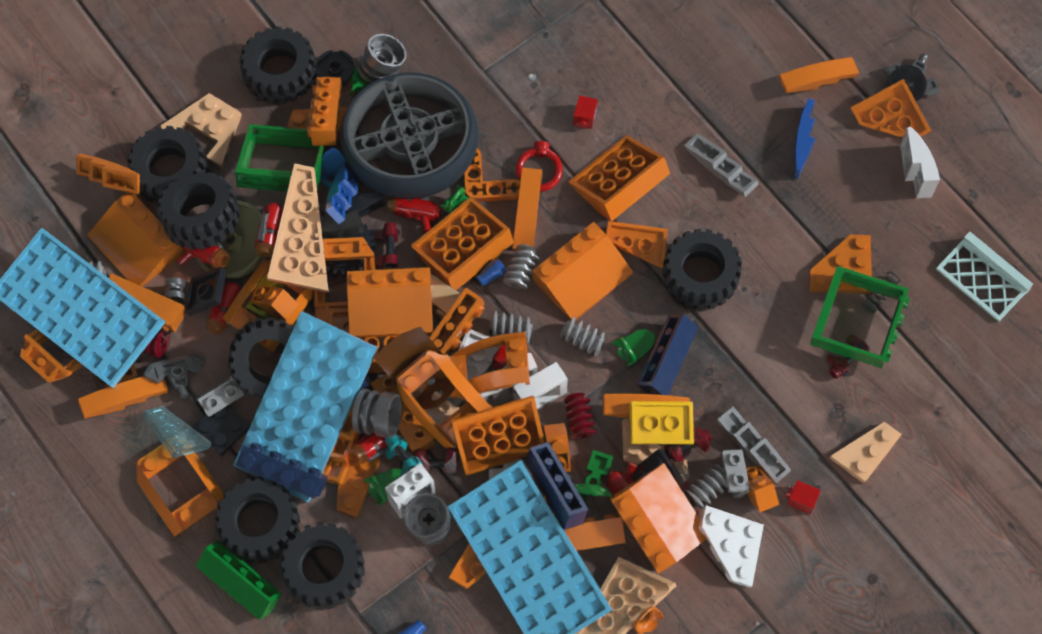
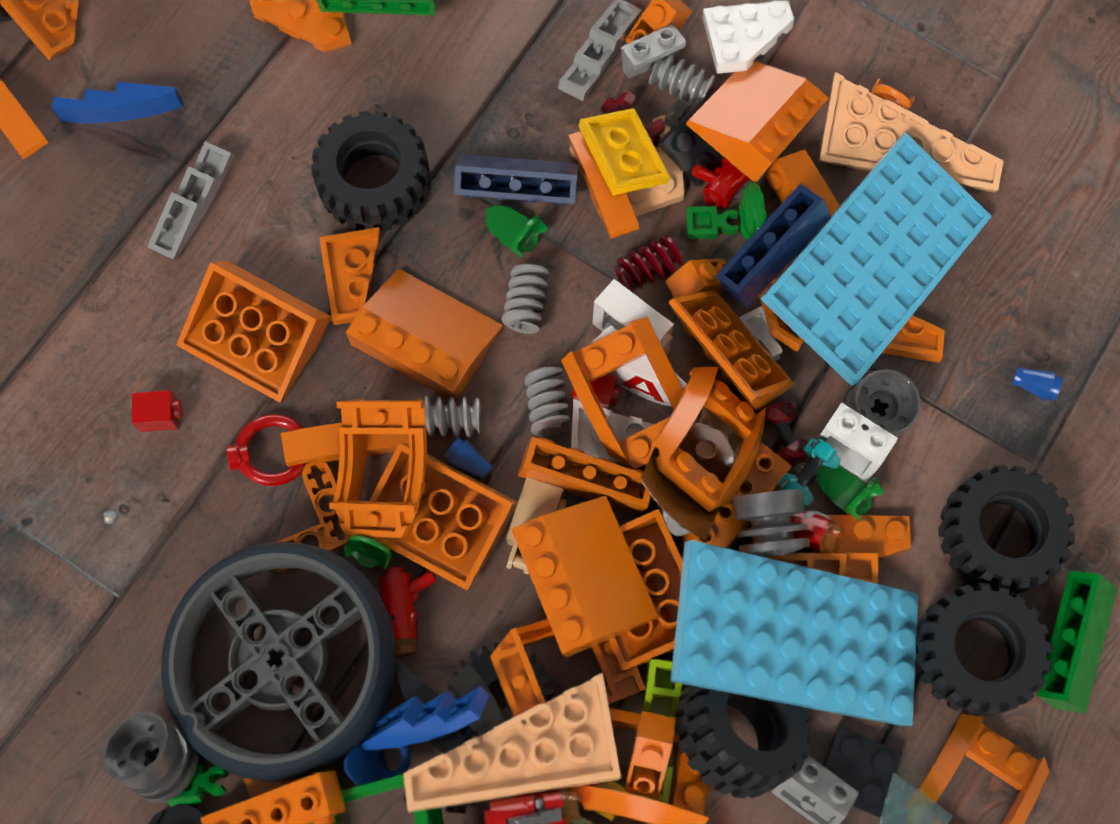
camera: 110 degrees left, 5 degrees up
(282, 470) = (906, 635): dark blue brick -> none
(390, 236) = (455, 633): dark red piece -> none
(523, 209) = (378, 417): none -> orange wedge

